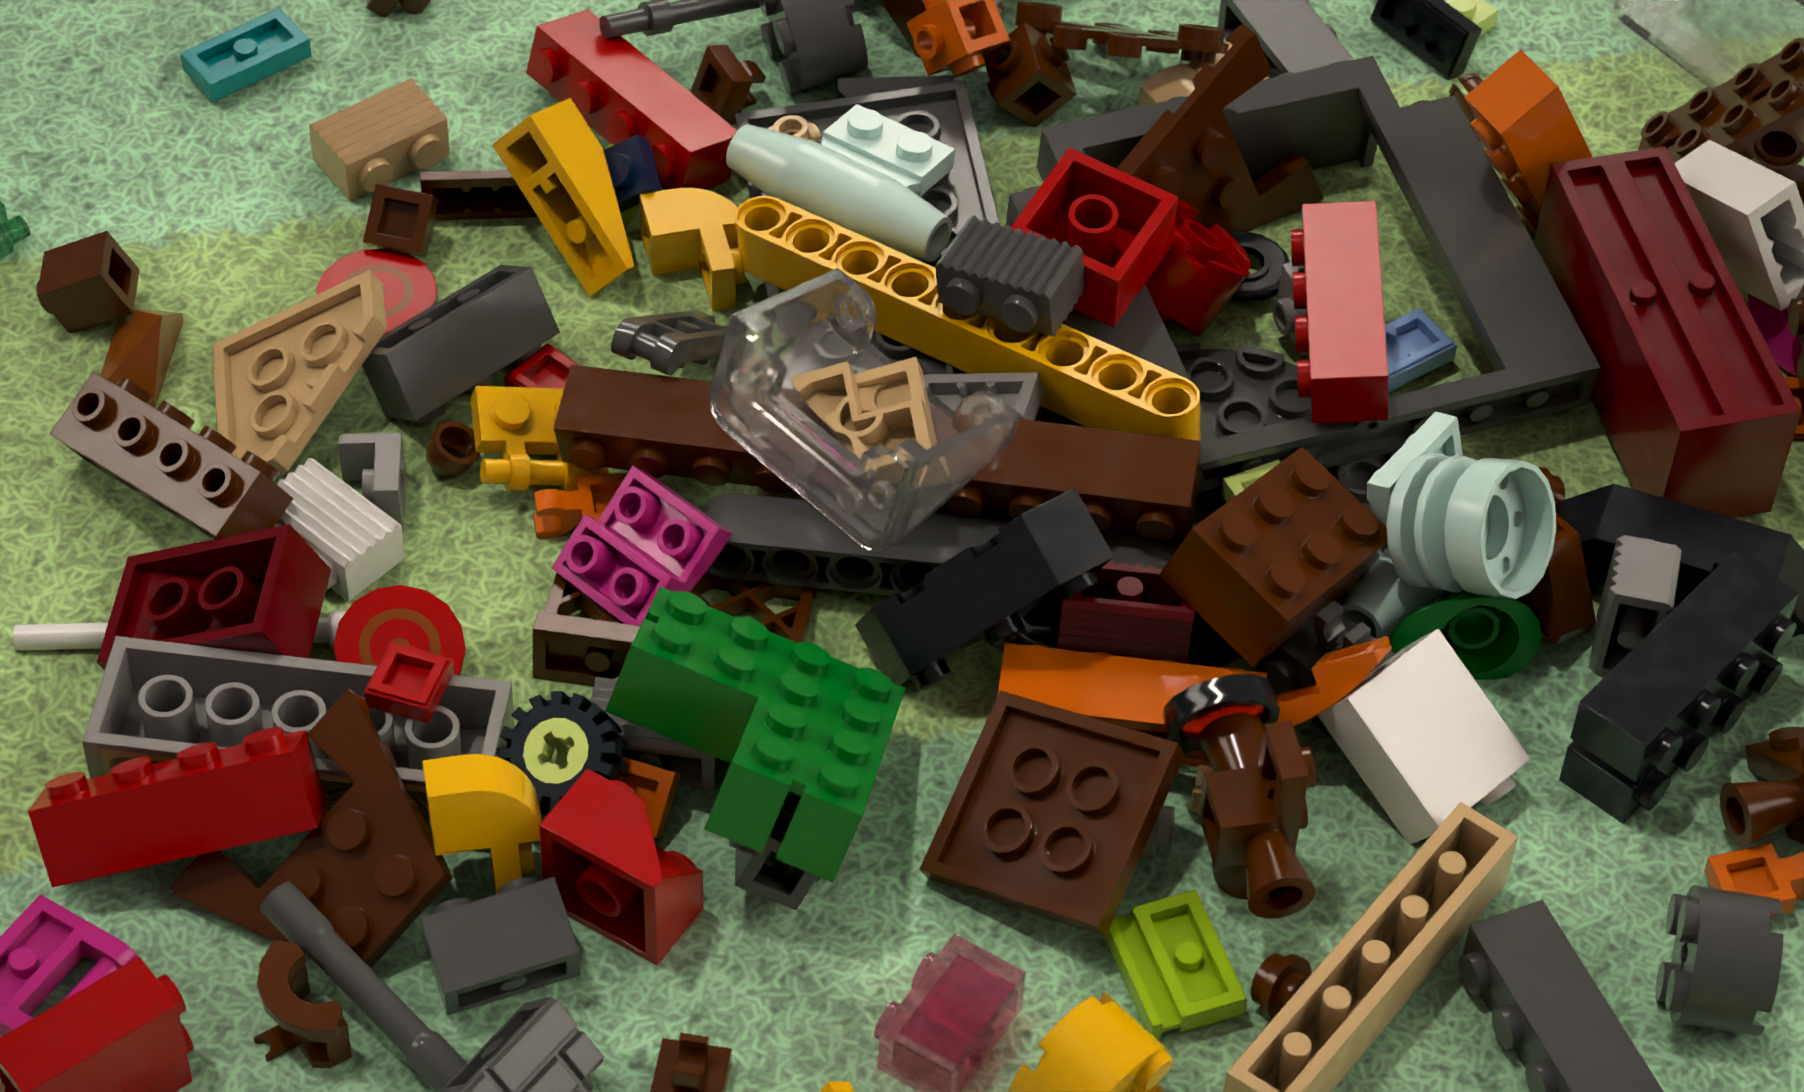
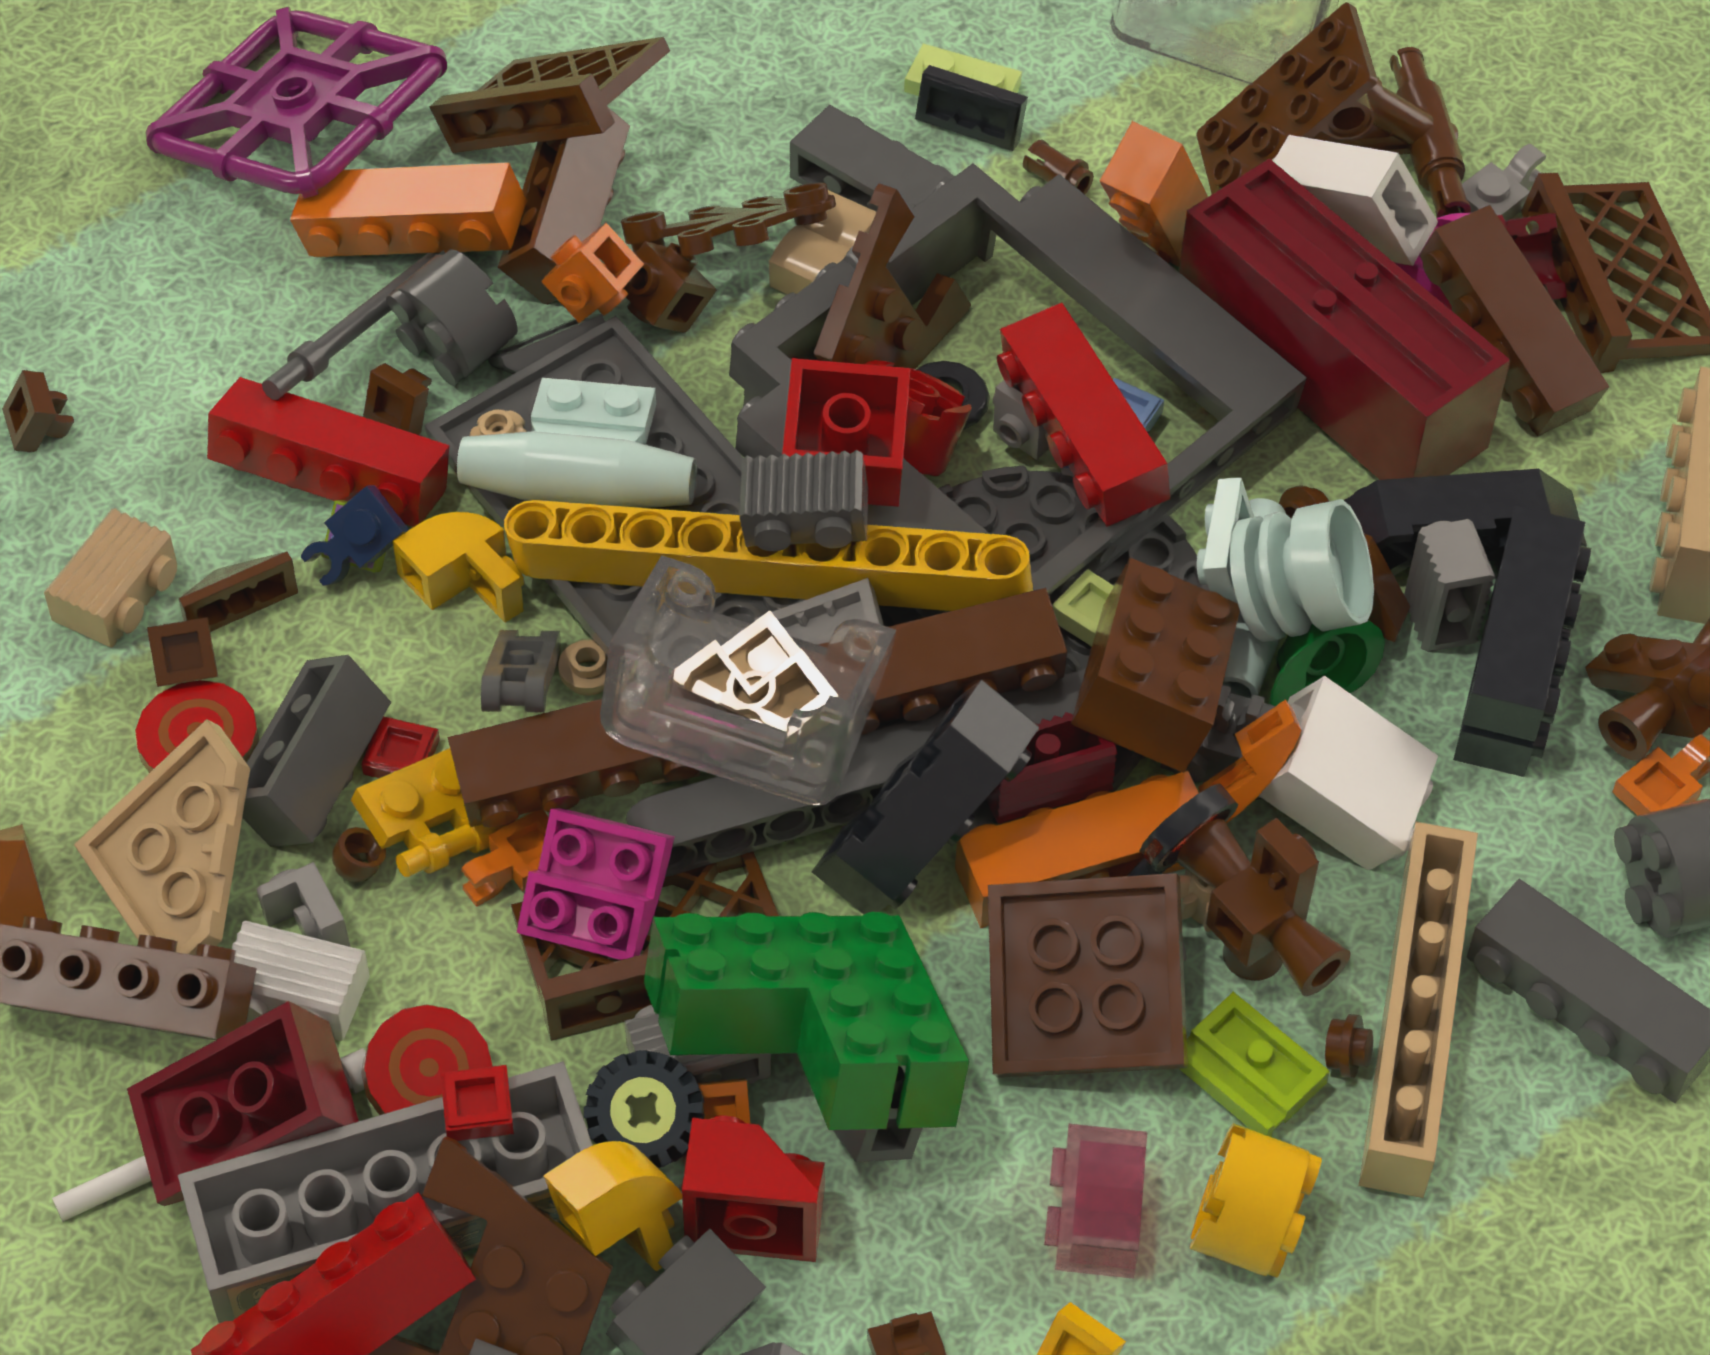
camera: 25 degrees left, 5 degrees up
(570, 190) = (332, 564): yellow slope -> none

